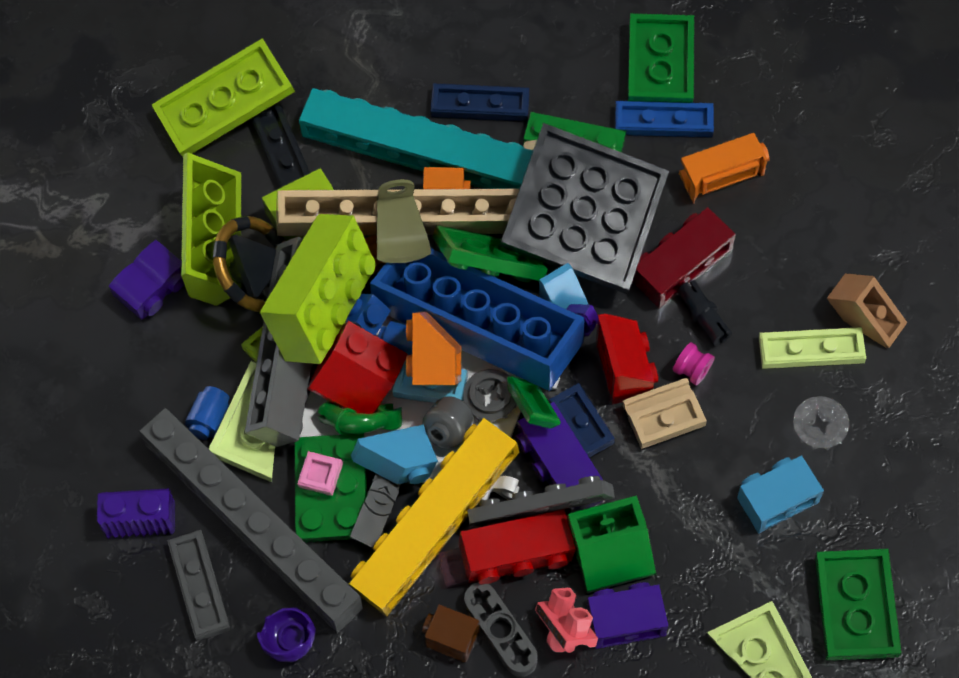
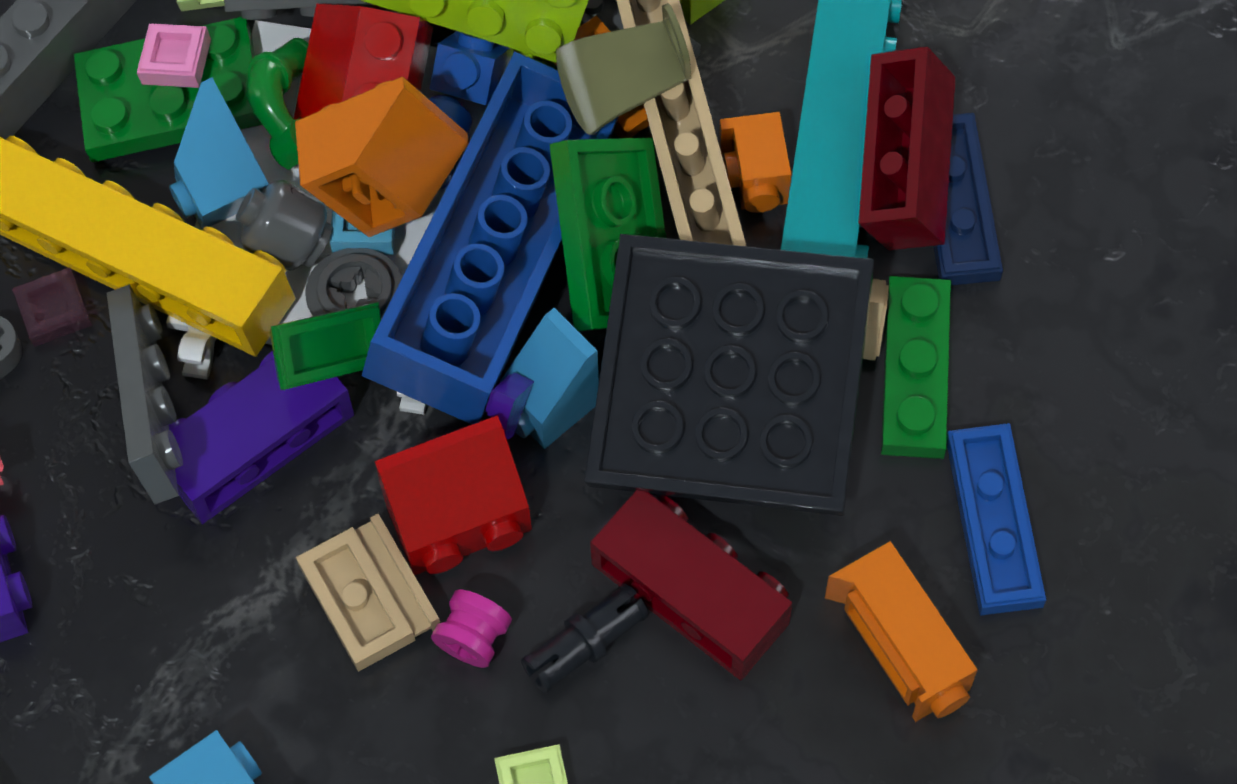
camera: 80 degrees right, 0 degrees up
(375, 510) = (122, 154): dark grey piece -> none
(460, 109) = (907, 149): none -> dark red brick
(517, 547) = (72, 377): red brick -> none
(583, 420) = (334, 454): dark blue plate -> none
(612, 544) = (94, 529): green slope -> none
(661, 58) = (1123, 491): green plate -> none

